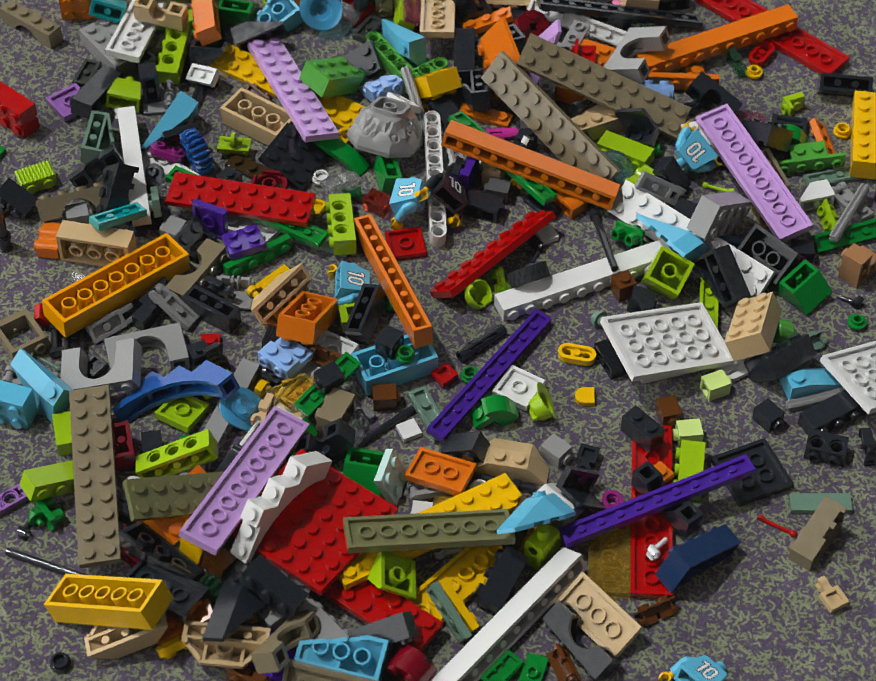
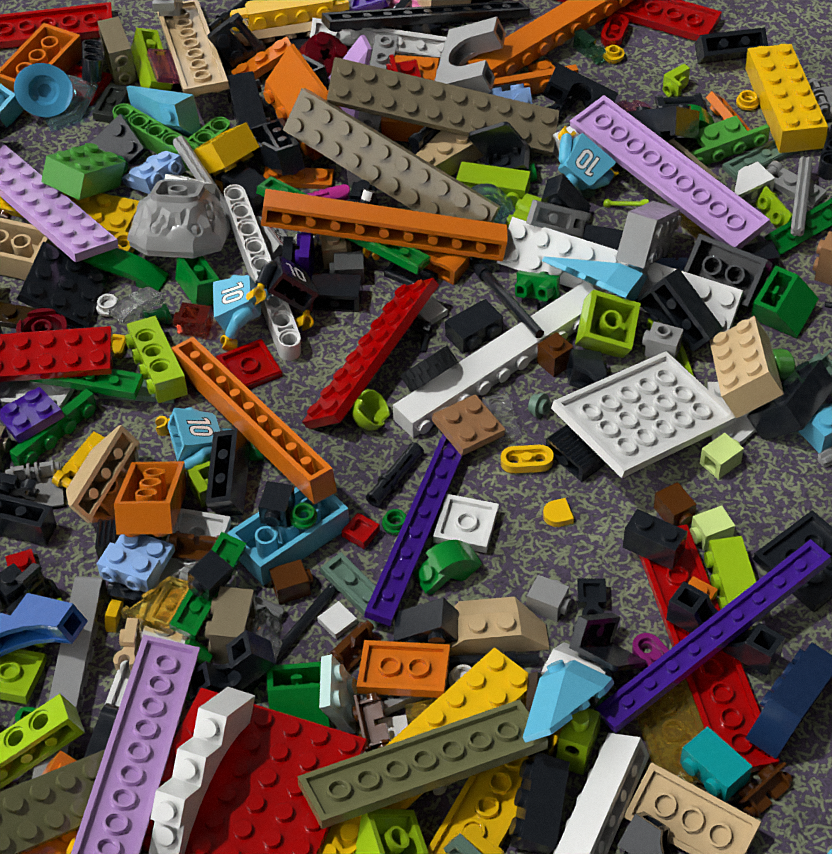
camera: 15 degrees left, 0 degrees up
(239, 408) = (94, 650): dark azure hat -> none
(406, 494) = (366, 714): none -> reddish brown hinge
(407, 453) = (350, 648): none -> reddish brown hinge
(498, 276) = (388, 380): clear neon green plate -> none
(541, 404) = (505, 541): lime piece -> none
(543, 320) = (468, 424): none -> medium nougat plate
(569, 322) = (503, 410): none -> clear slope
(573, 252) = (474, 326): none -> black brick
(626, 584) = (715, 764): none -> teal brick
(653, 550) = (732, 707): white hand -> none
(703, 293) = (662, 339): none -> light grey brick
(768, 415) = (805, 479): black brick -> none

